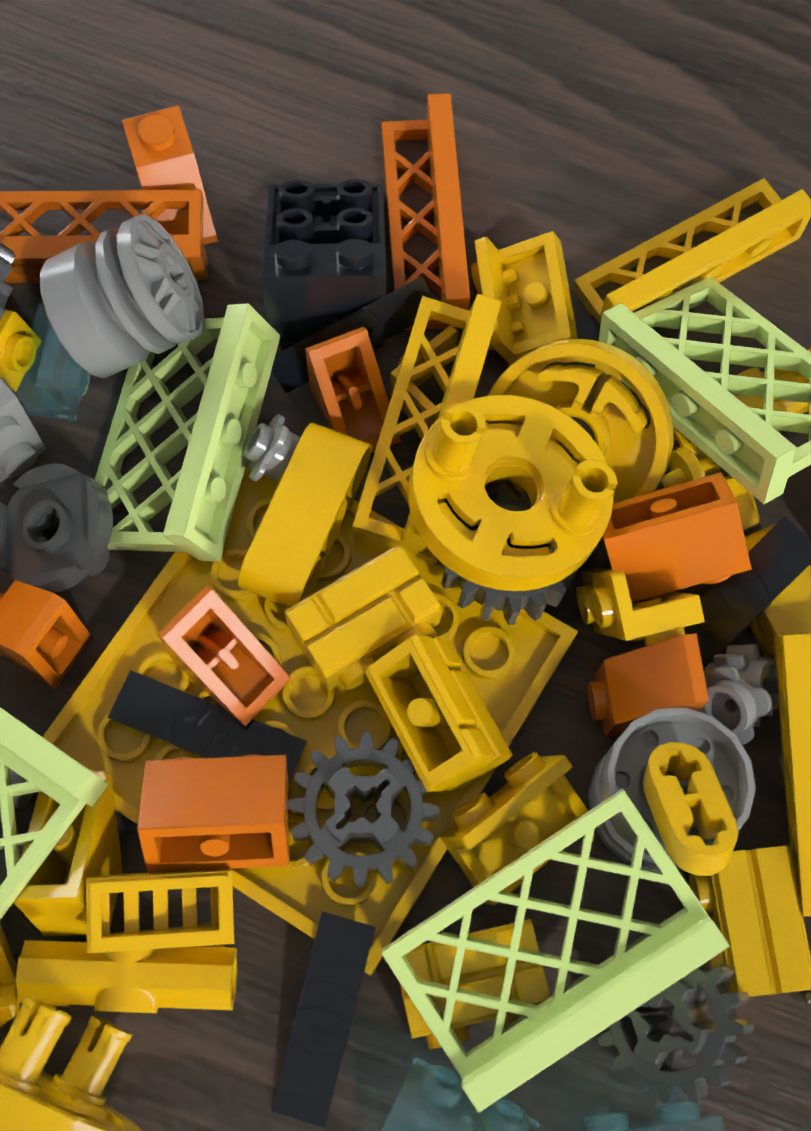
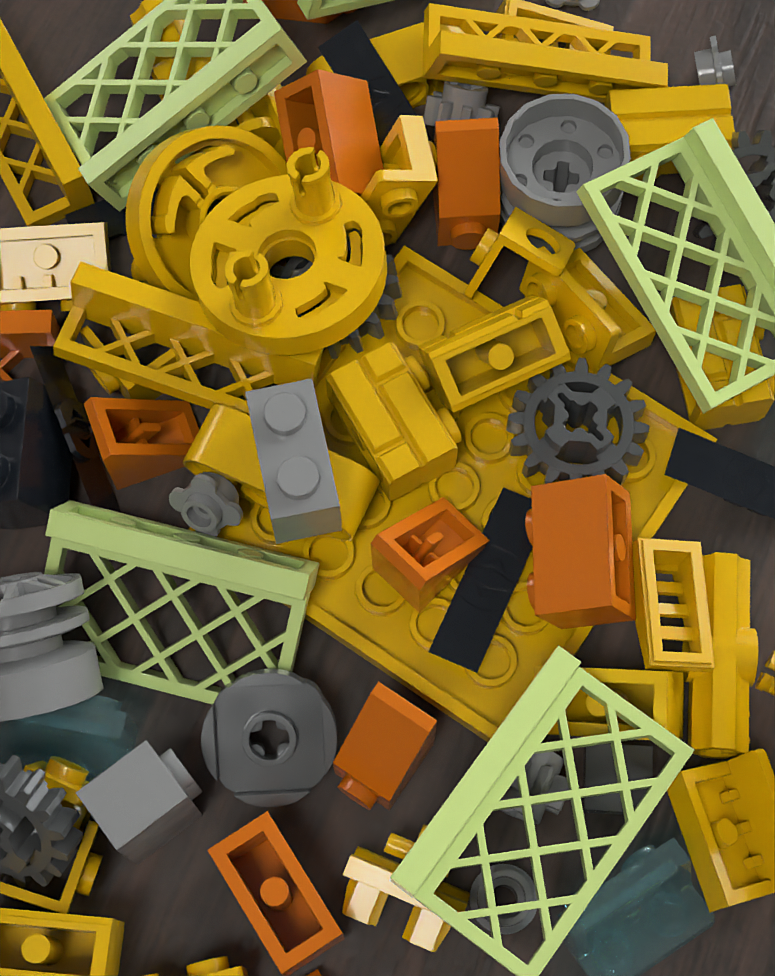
camera: 85 degrees left, 0 degrees up
(289, 505) = (294, 461): none -> light grey brick
(568, 726) = (514, 237): none -> yellow bracket
(702, 803) = (591, 142): yellow beam -> none
(750, 702) = (489, 96): light grey plate -> none

